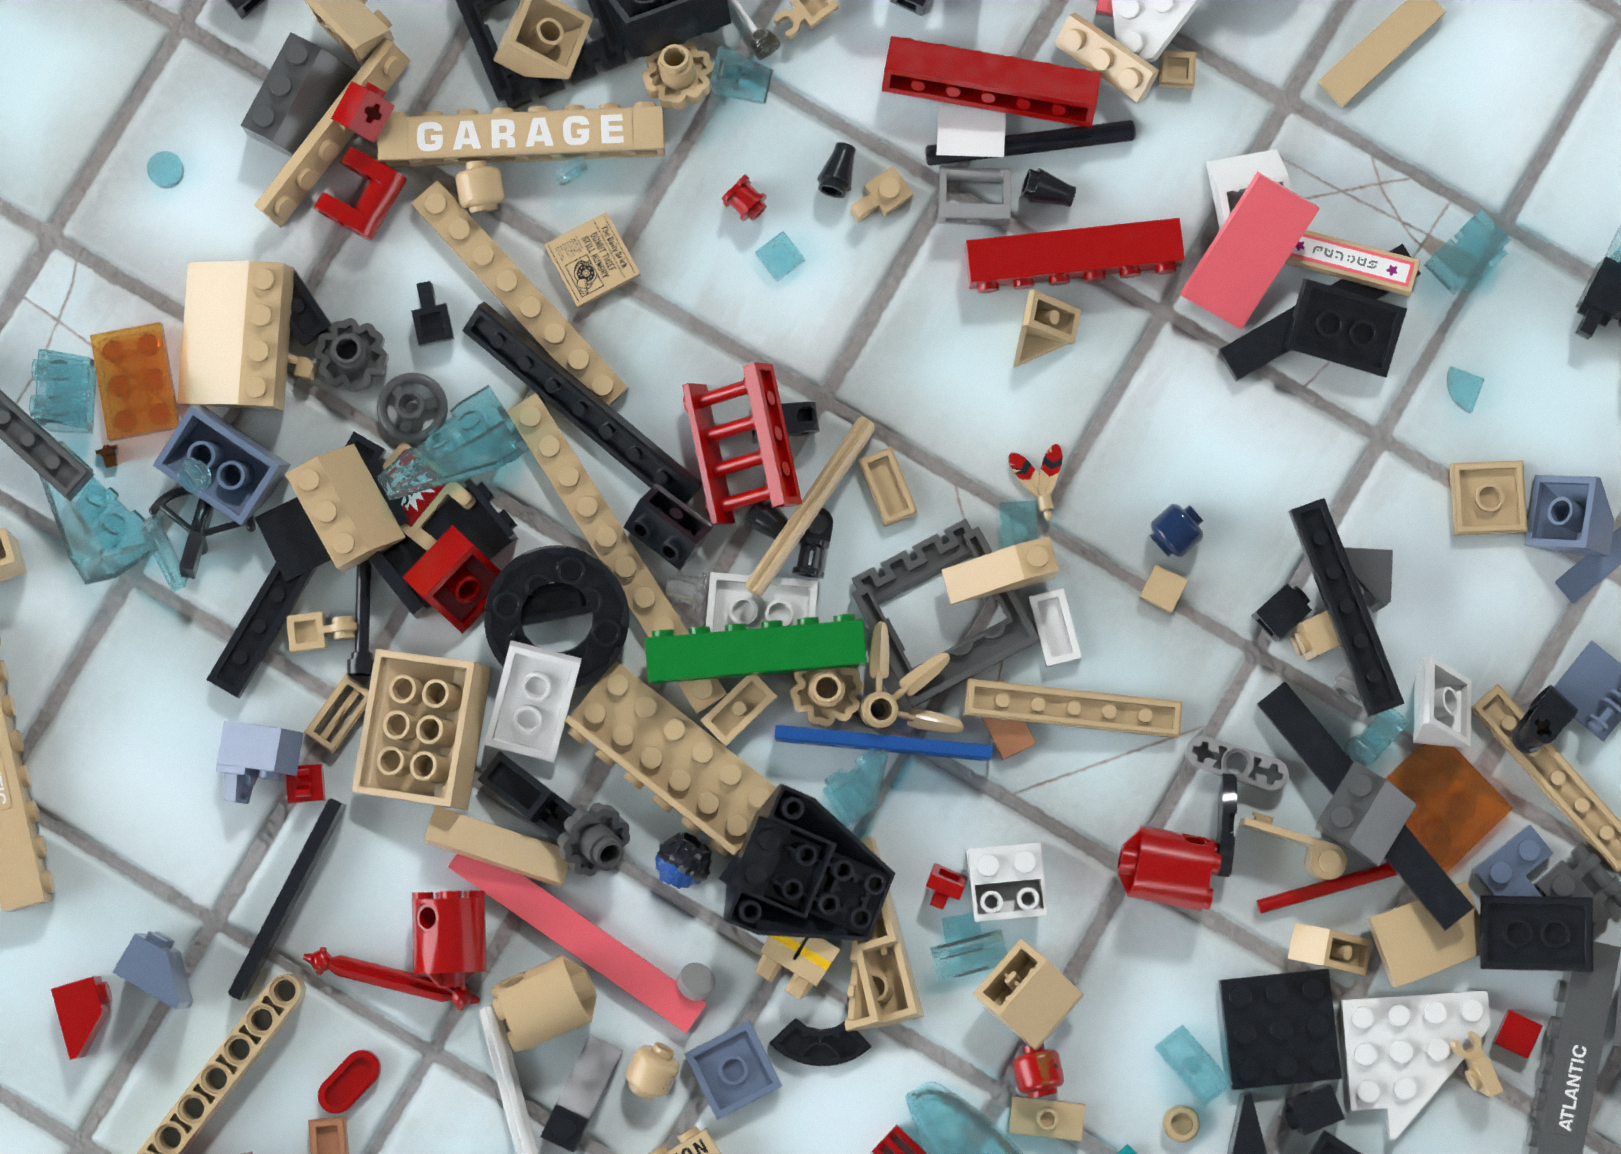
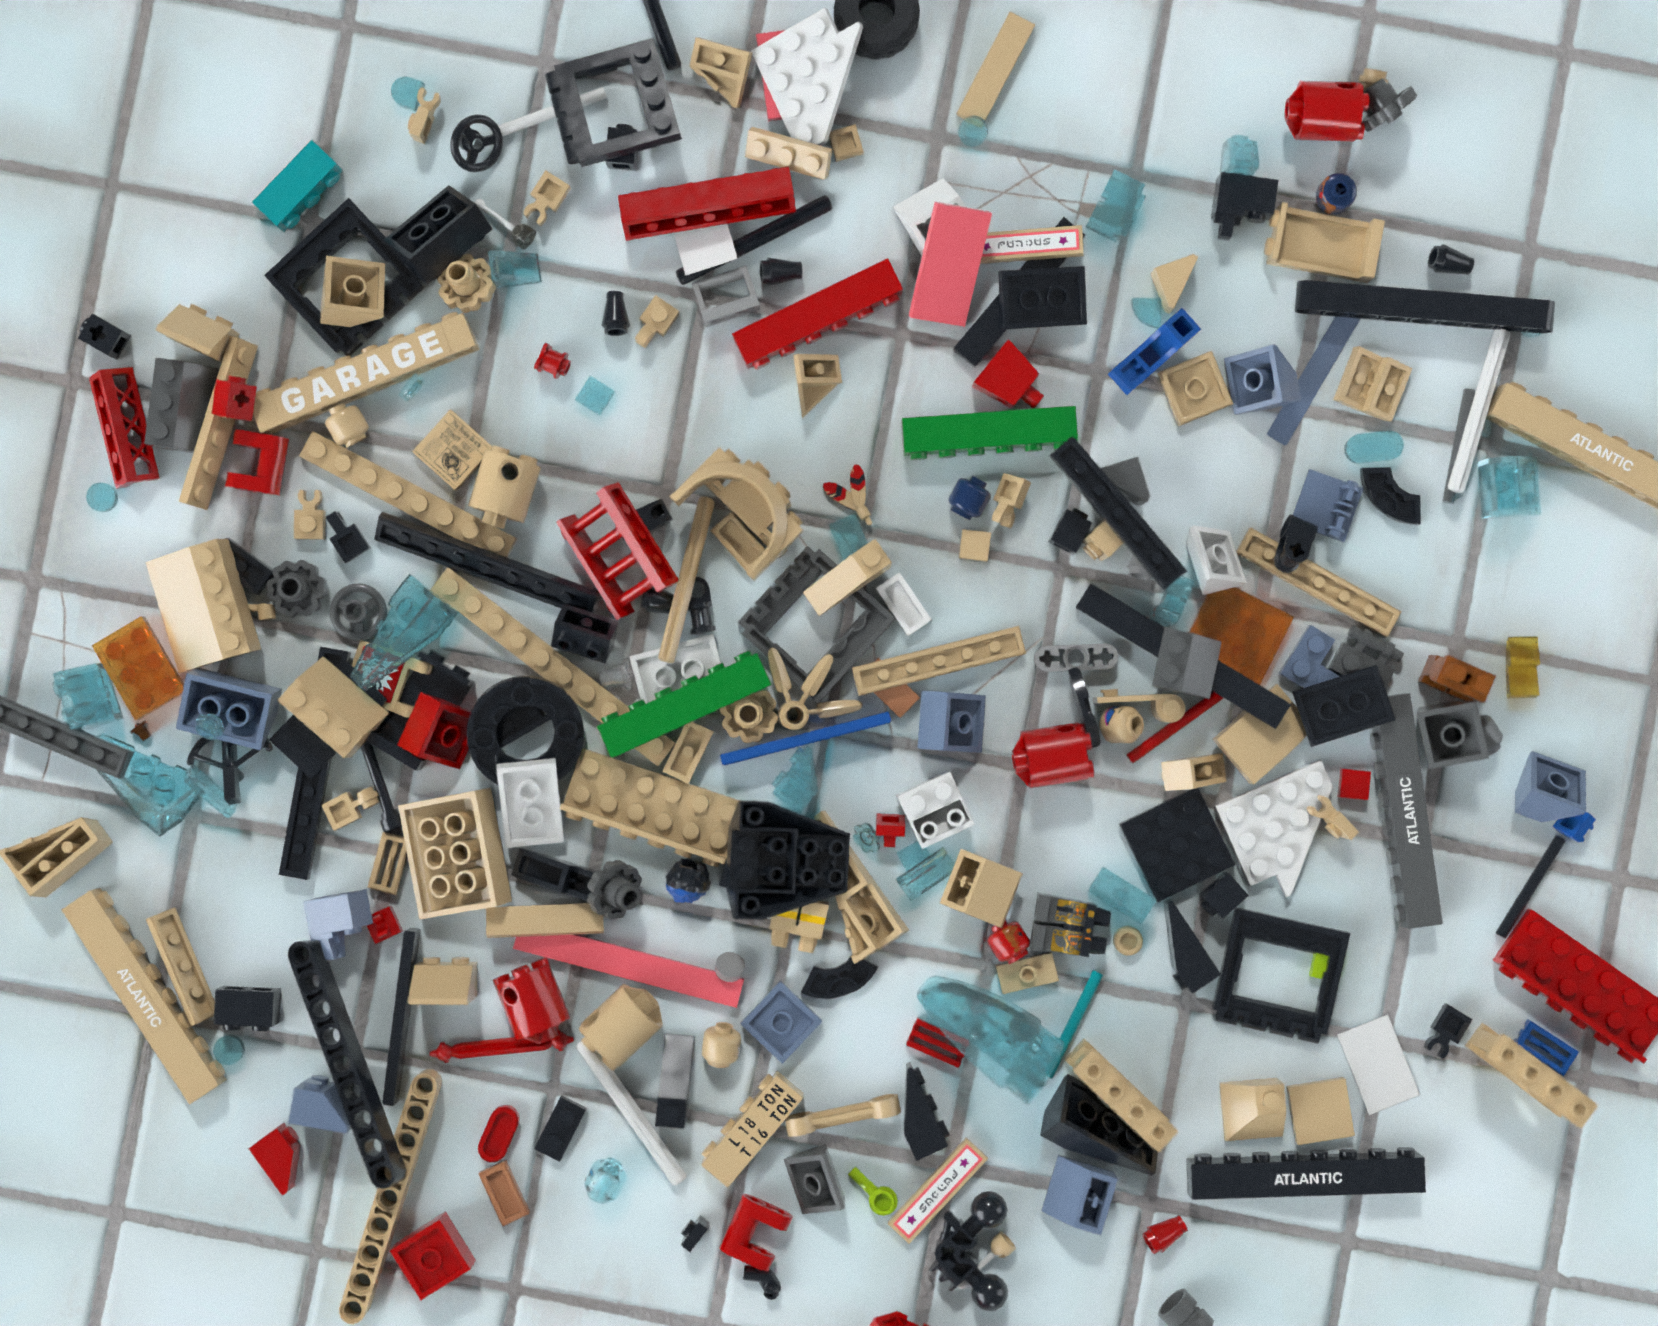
camera: 25 degrees left, 5 degrees up
(53, 747) = (182, 966): none -> tan tile
(69, 865) = (228, 1049): none -> clear light blue tile
(110, 822) = (247, 1007): none -> black brick
(210, 93) = (114, 430): none -> red fence
(214, 943) = (358, 1071): none -> black beam
(353, 875) = (443, 982): none -> tan slope
(395, 282) = (309, 522): none -> tan plate
(424, 1102) = (560, 1128): none -> black plate
(630, 334) = (500, 497): none -> tan cylinder
(912, 887) = (866, 838): none -> clear light blue plant
(920, 440) = (751, 499): none -> tan piece
(1062, 785) = (951, 721): none -> sand blue slope
(1124, 1086) = (1076, 930): none -> hips
(1224, 460) = (988, 431): none -> green brick
(1224, 544) = (1009, 495): none -> tan plate
(1263, 861) = (1121, 724): none -> tan head
(1272, 408) = (1009, 378): none -> red torso
(1331, 107) = (973, 131): none -> clear light blue tile
(1455, 437) = (1154, 351): none -> blue arch
(1503, 360) = (1171, 279): none -> tan slope

